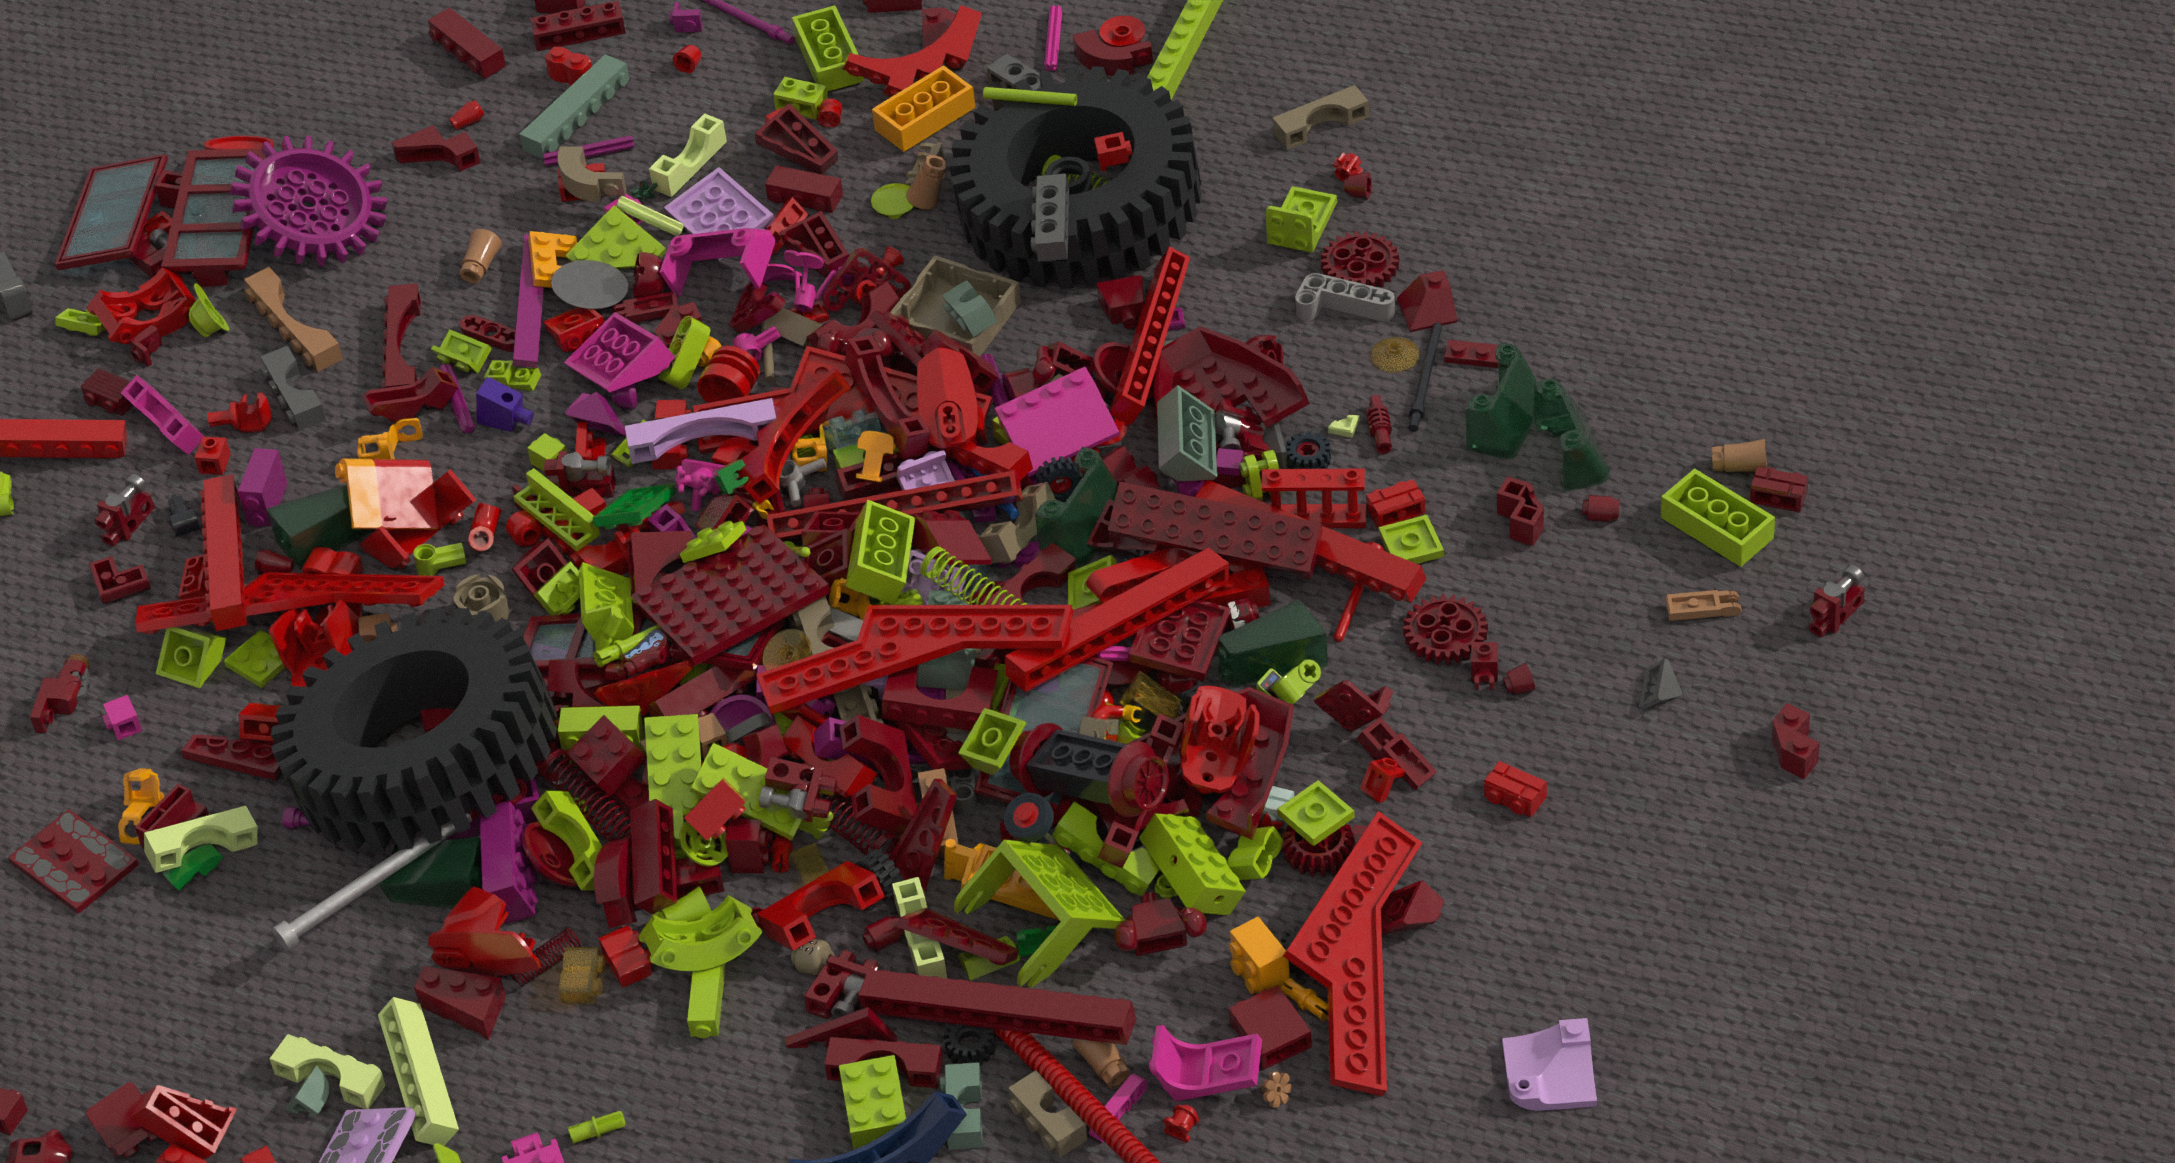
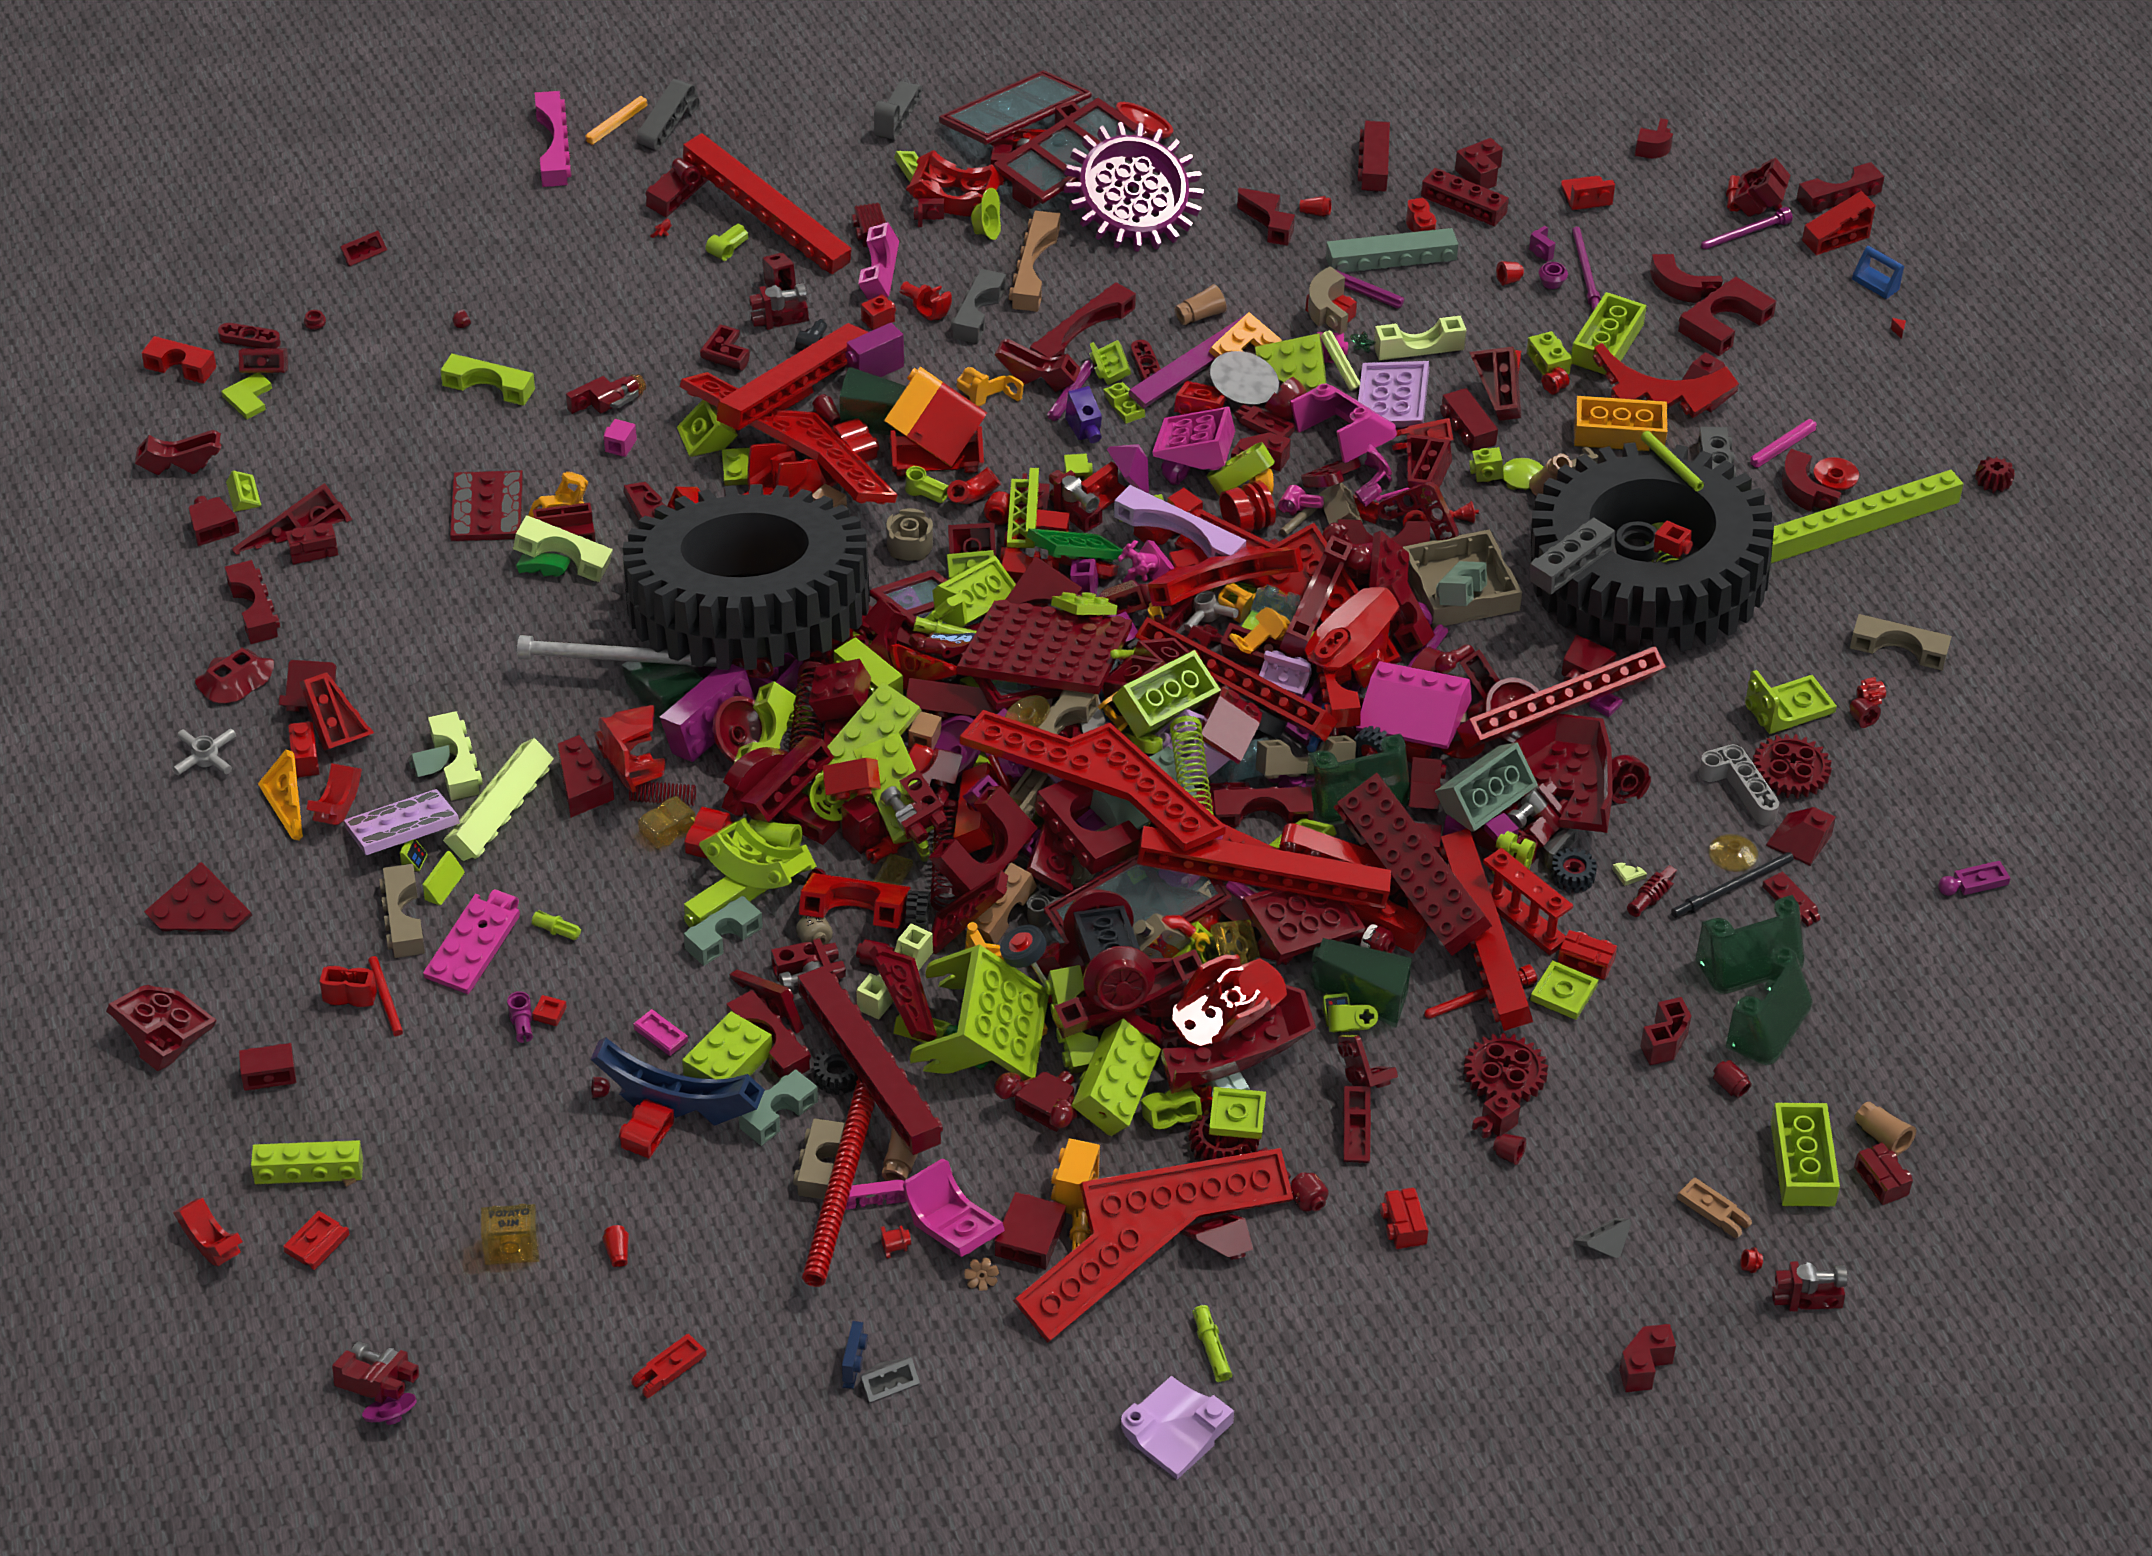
camera: 40 degrees right, 0 degrees up
(86, 485) = (779, 269): none -> dark red torso
(725, 36) = (1552, 275): none -> magenta cone
(727, 479) = (1148, 570): green hinge -> none
(739, 997) = (738, 918): none -> sand green arch
(748, 726) = (952, 745): dark grey beam -> none
(793, 1132) = (660, 1032): none -> dark pink plate
(864, 211) = (1487, 464): none -> lime brick
(991, 740) = (1075, 878): lime slope -> none
(1380, 778) = (1322, 1128): red bracket -> none
(1427, 828) = (1309, 1192): none -> dark red head
(1489, 987) = (1208, 1334): none -> lime pin
(1579, 243) = (1975, 879): none -> magenta plate
(1771, 619) = (1751, 1260): none -> red plate

